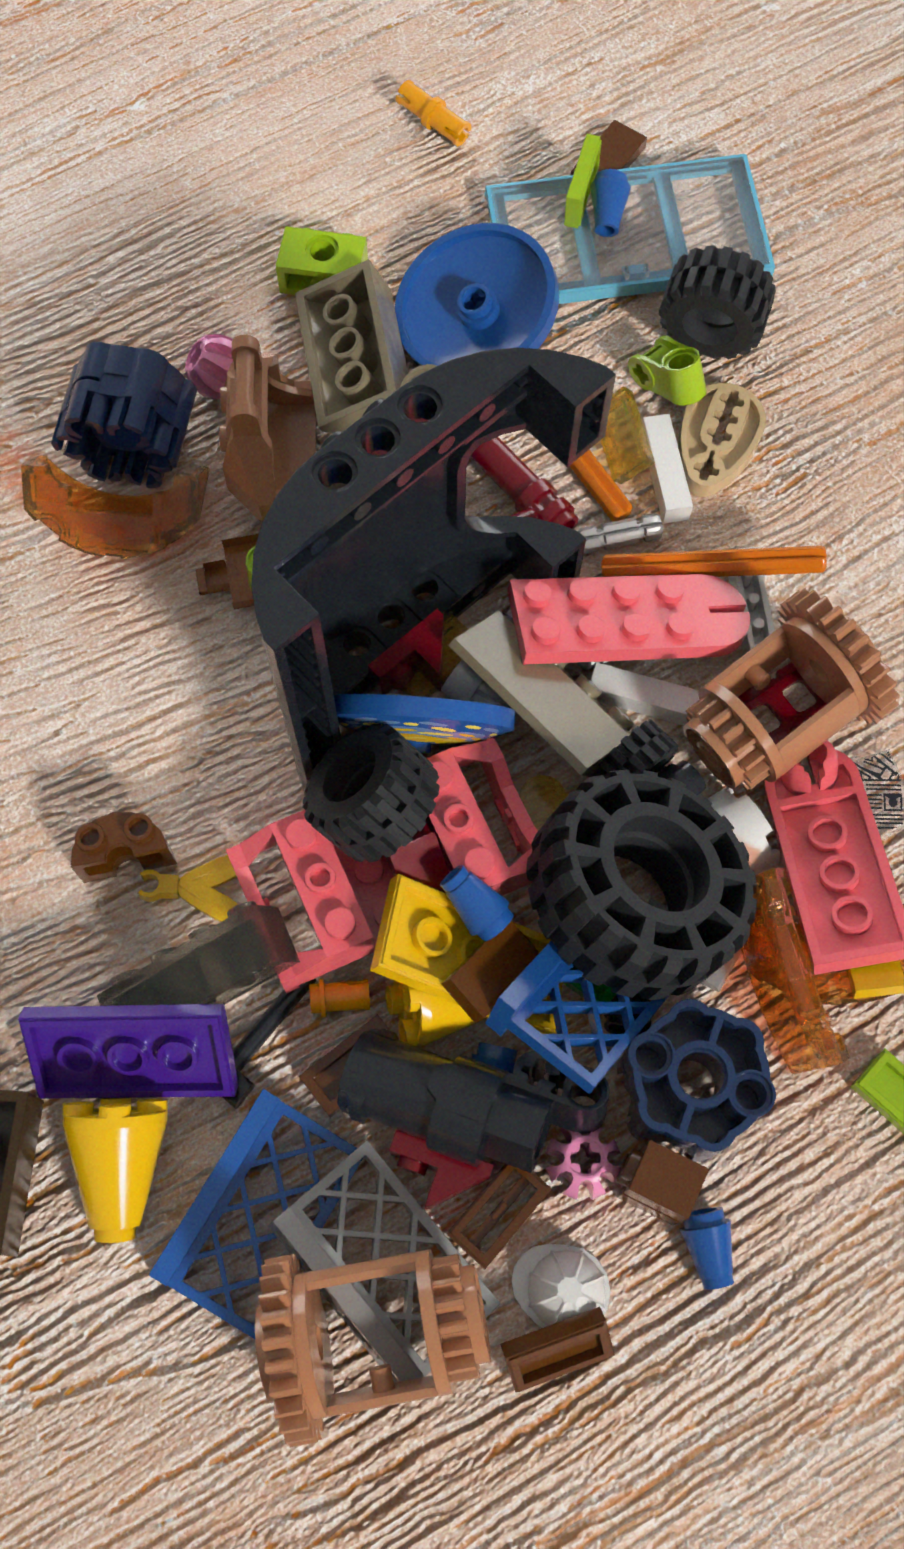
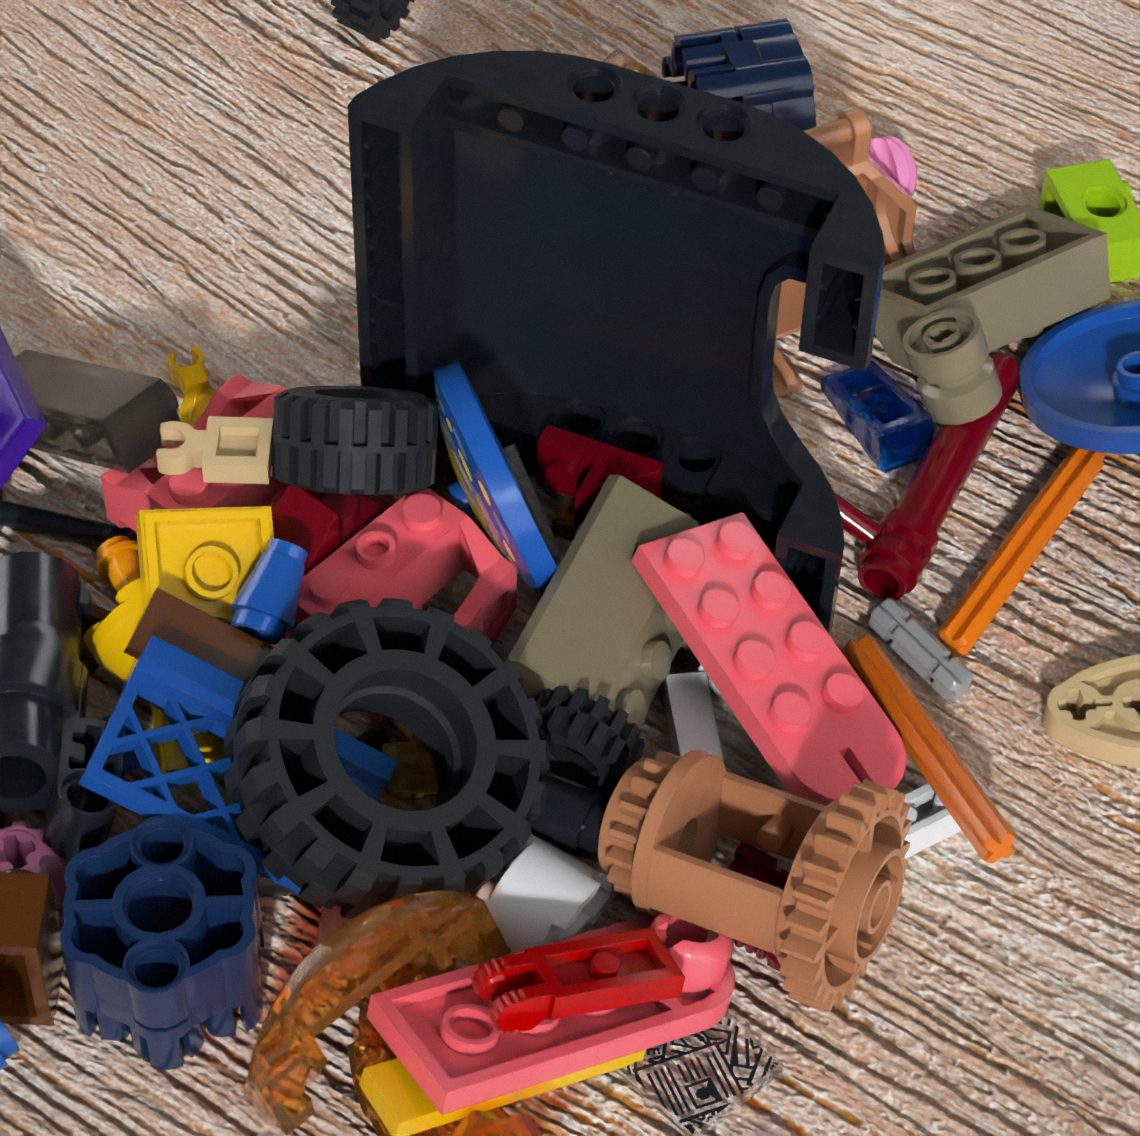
camera: 65 degrees right, 20 degrees down
(116, 839) = (212, 305): reddish brown cylinder -> none
(338, 882) = (226, 451): none -> tan plate
(625, 438) = (1065, 599): clear yellow tile -> none
(667, 471) = (1031, 675): white piece -> none
(838, 832) = (577, 978): none -> red hinge

